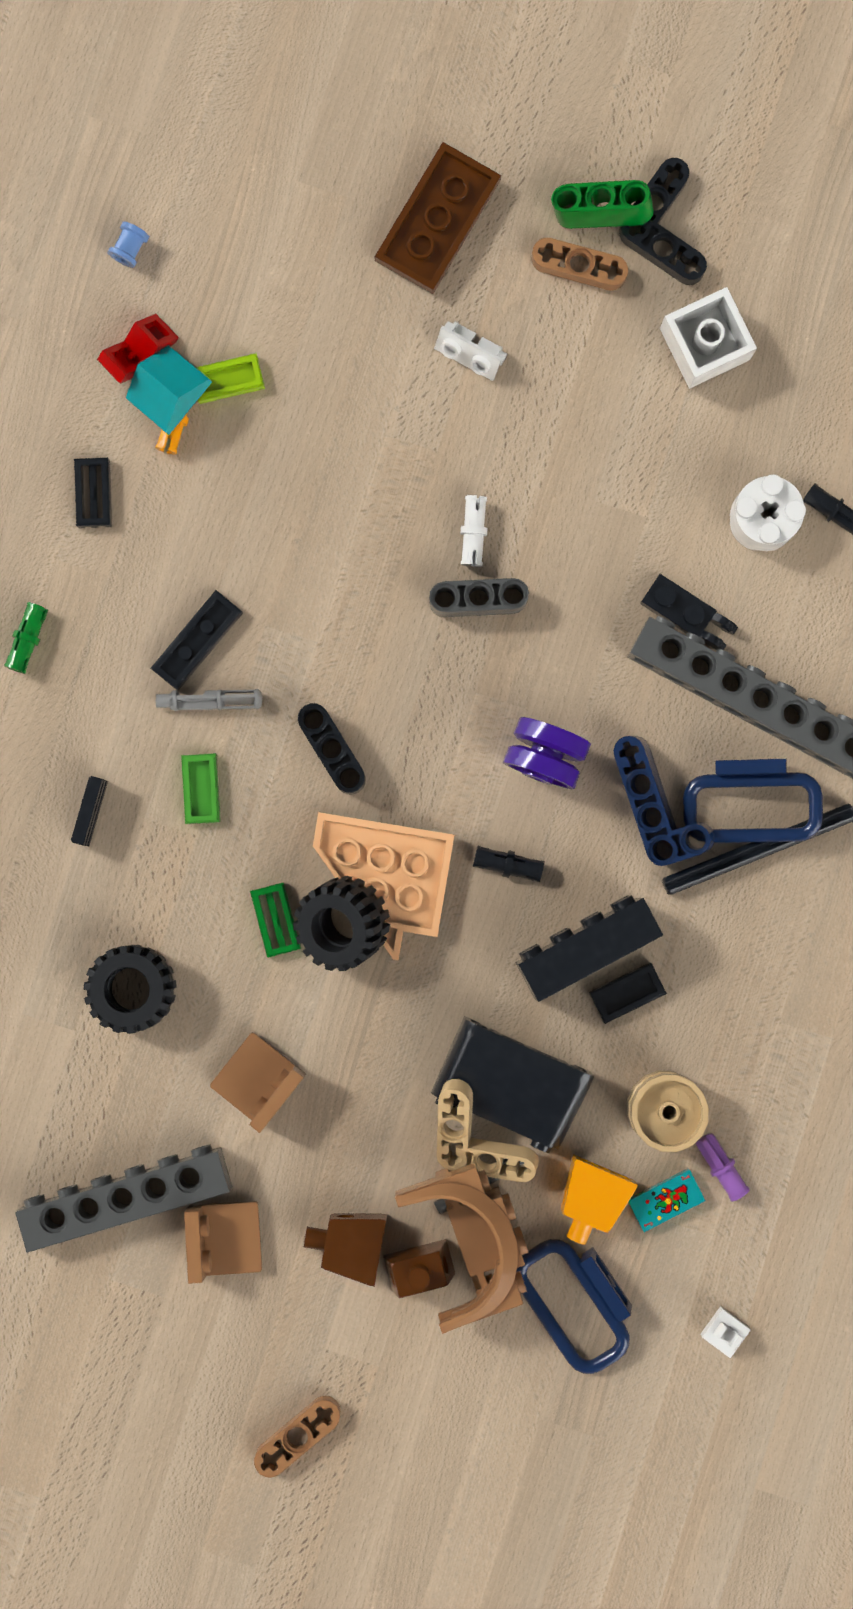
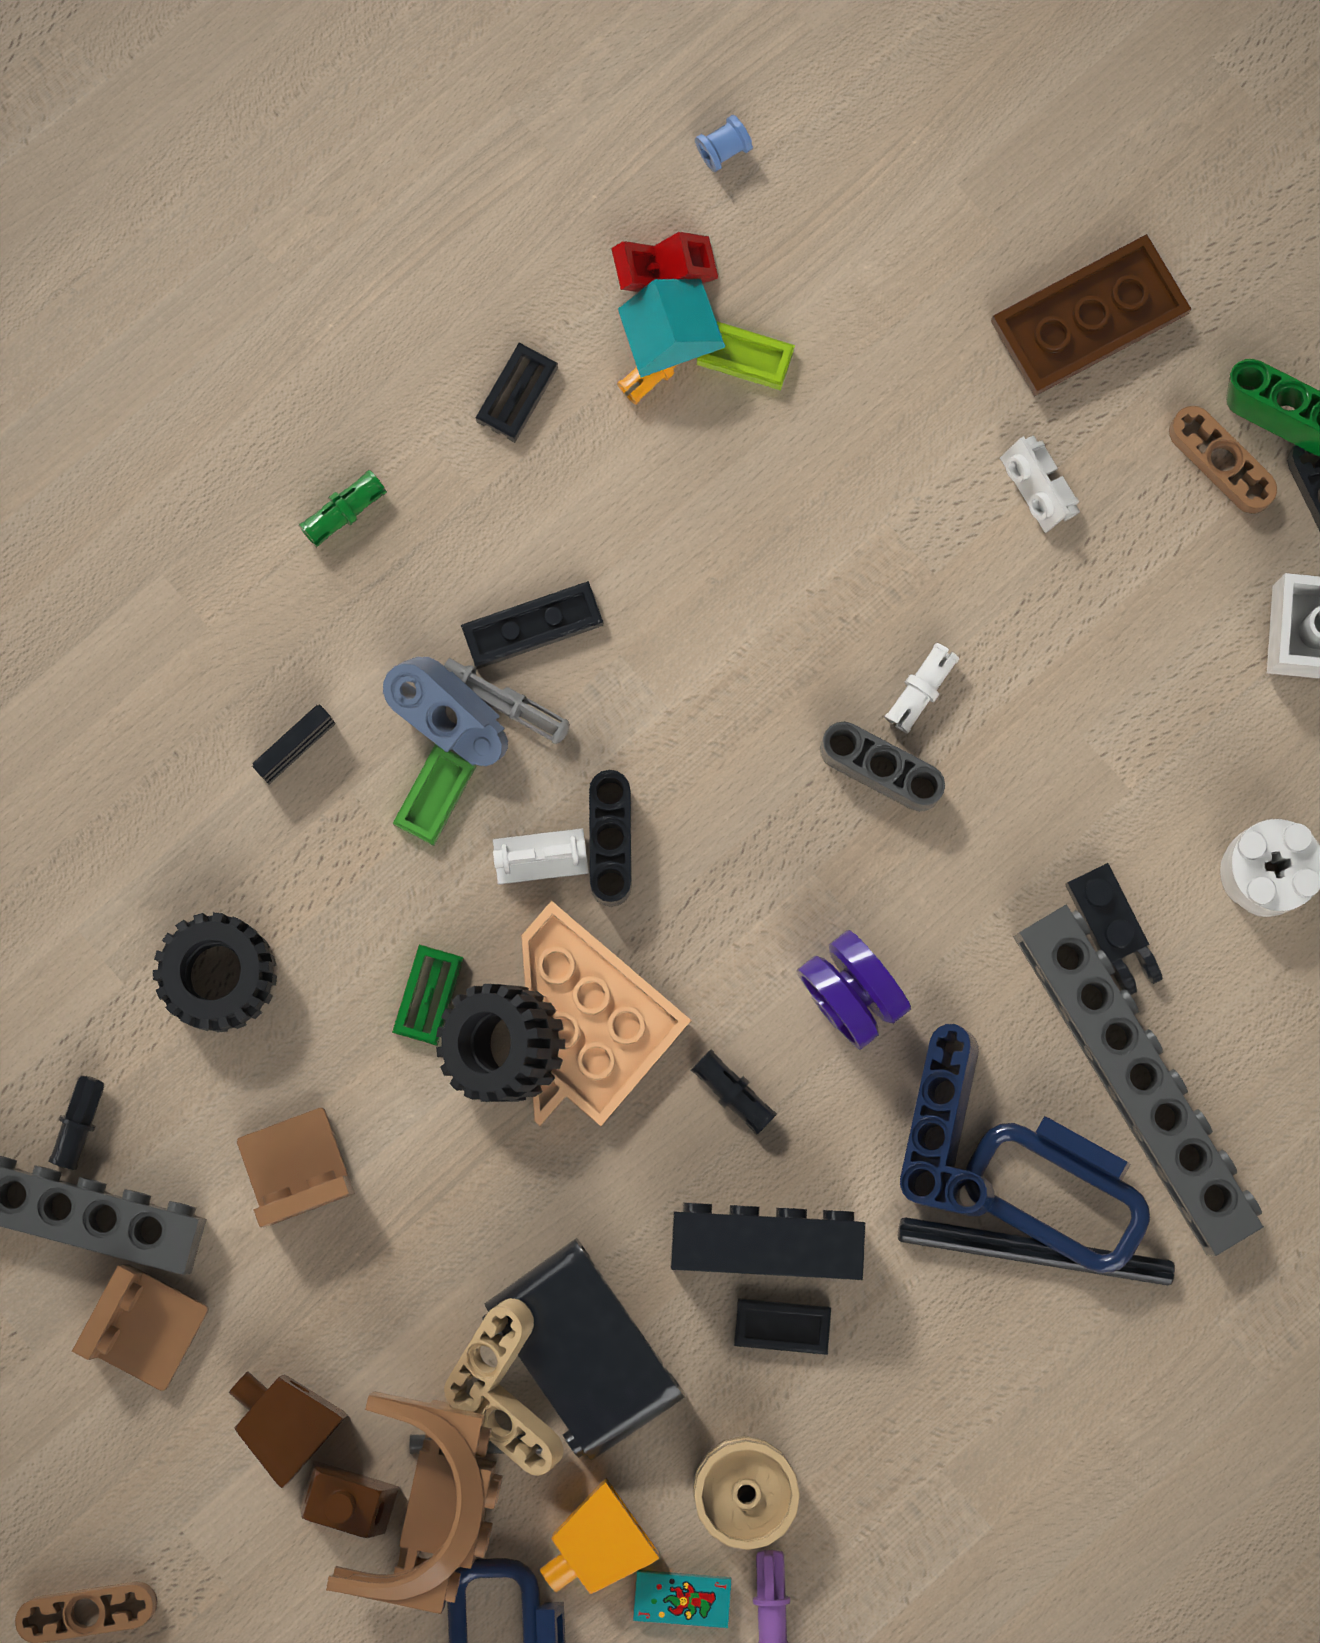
camera: 30 degrees right, 5 degrees down
(100, 1137) = (77, 1122): none -> black axle
(203, 736) = (477, 733): none -> sand blue piece
(293, 787) = (540, 856): none -> white hinge

